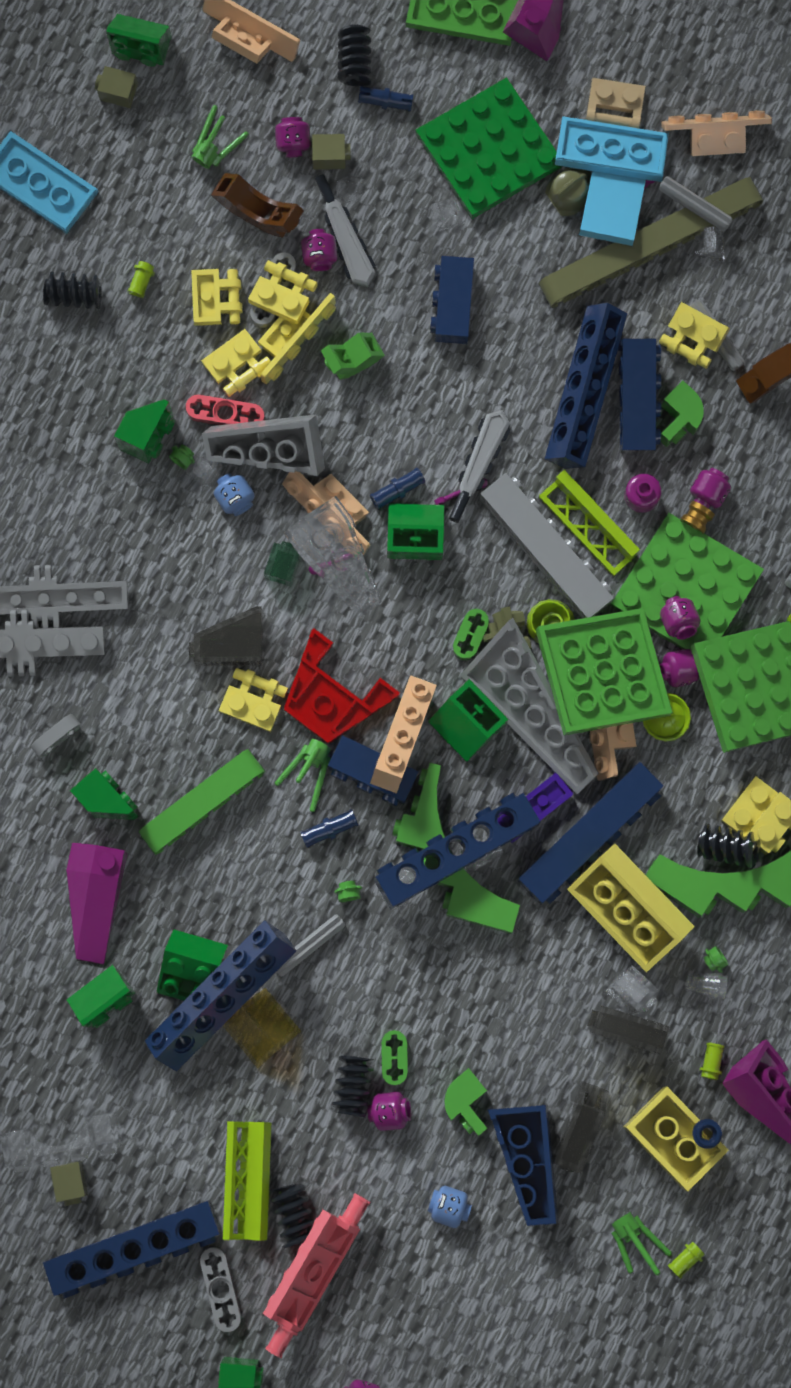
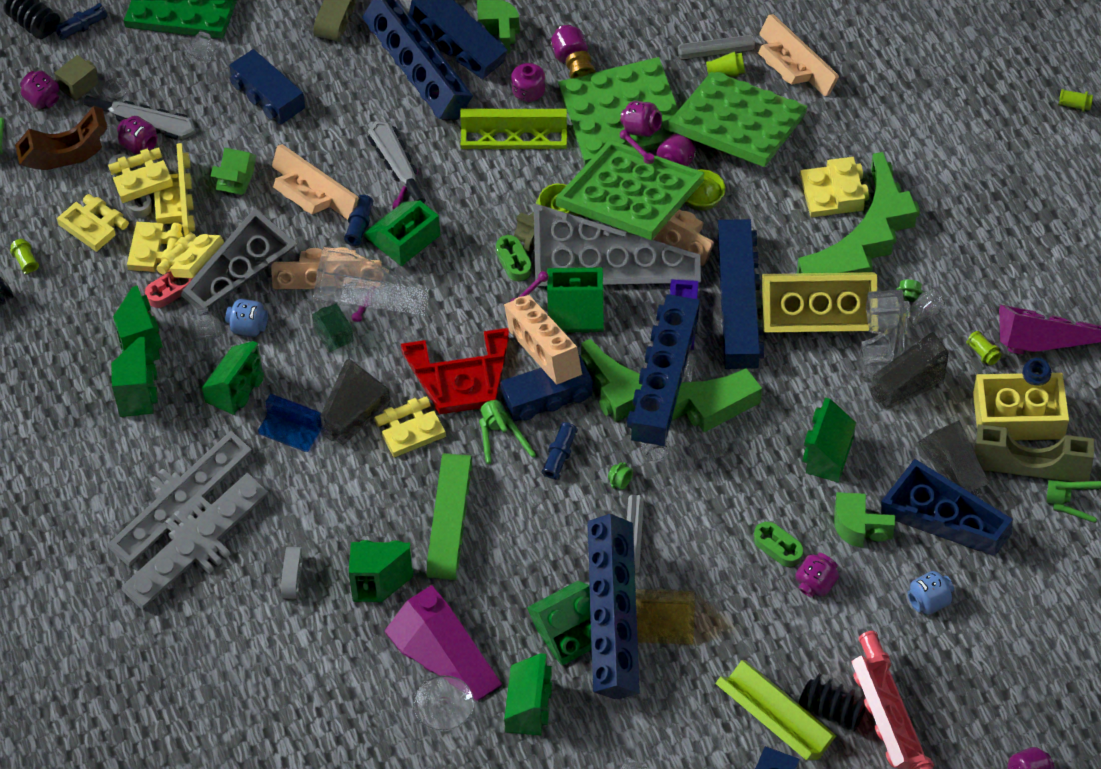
camera: 45 degrees left, 25 degrees down
(33, 937) = (441, 691): none -> clear dish
(101, 472) = (134, 380): none -> green slope
(171, 539) = (235, 378): none -> green slope
(174, 614) = (290, 423): none -> clear blue panel
(182, 456) = (180, 327): bright green plate -> none
(245, 409) = (190, 255): none -> light yellow plate
(352, 1085) = (770, 584): black piece -> none
(390, 423) = (309, 185): none -> light nougat bracket
(456, 684) = (542, 277): none -> magenta hinge
(511, 1024) = (829, 441): none -> green slope
(546, 547) = (499, 164): light grey brick -> none
(647, 657) = (648, 157): none -> magenta hinge
(653, 1207) = (1067, 460): none -> olive arch
(727, 847) = (834, 214): black piece -> none

